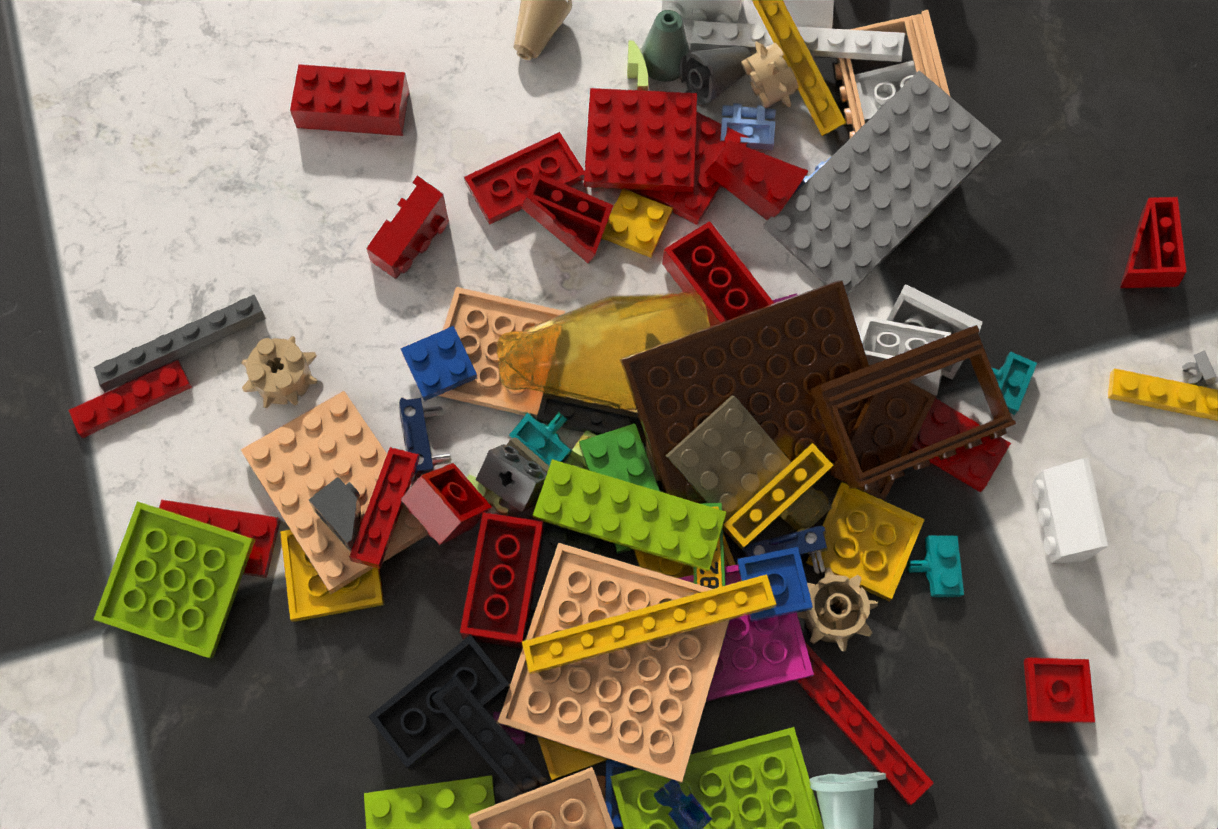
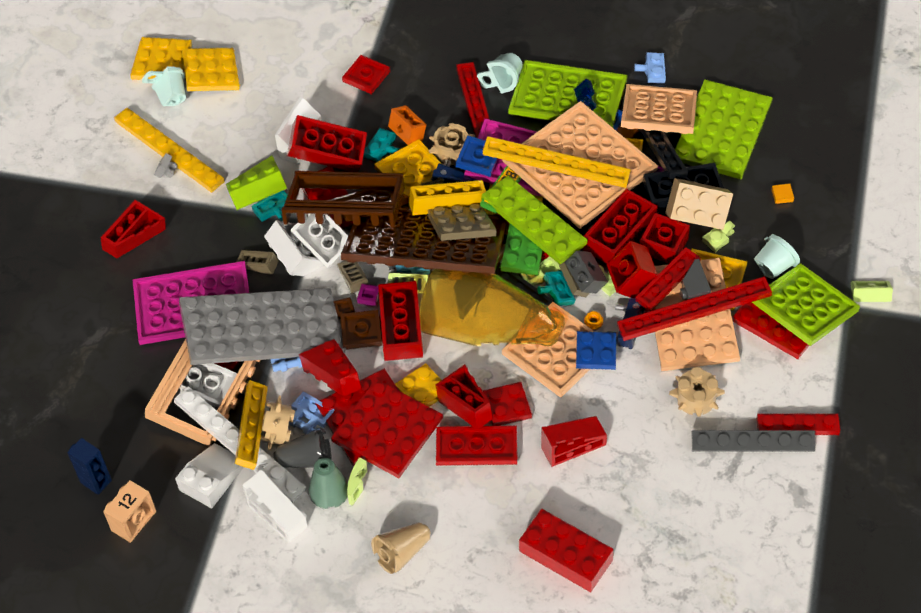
camera: 145 degrees left, 15 degrees down
(90, 671) = (871, 291): none -> yellowish green slope
(243, 637) = (776, 257): none -> light aqua container
(286, 791) = (782, 193): none -> light orange tile
(335, 462) = (694, 308): none -> red plate
(354, 649) = (718, 238): none -> yellowish green plate
(395, 665) = (699, 203): none -> tan brick
(427, 592) = (665, 238): none -> red brick
(469, 412) = (593, 316): none -> light orange plate
(519, 251) = (508, 404): none -> red plate
(767, 256) = (361, 329): none -> reddish brown plate
(805, 280) = (344, 306): none -> reddish brown tile
(925, 609) = (406, 124): none -> orange brick
(947, 292) = (268, 259): none -> dark tan slope
(1005, 199) = (158, 297): none -> dark pink plate
(1009, 494) = (327, 144): none -> red brick
(1056, 398) = (256, 183): none -> lime wedge

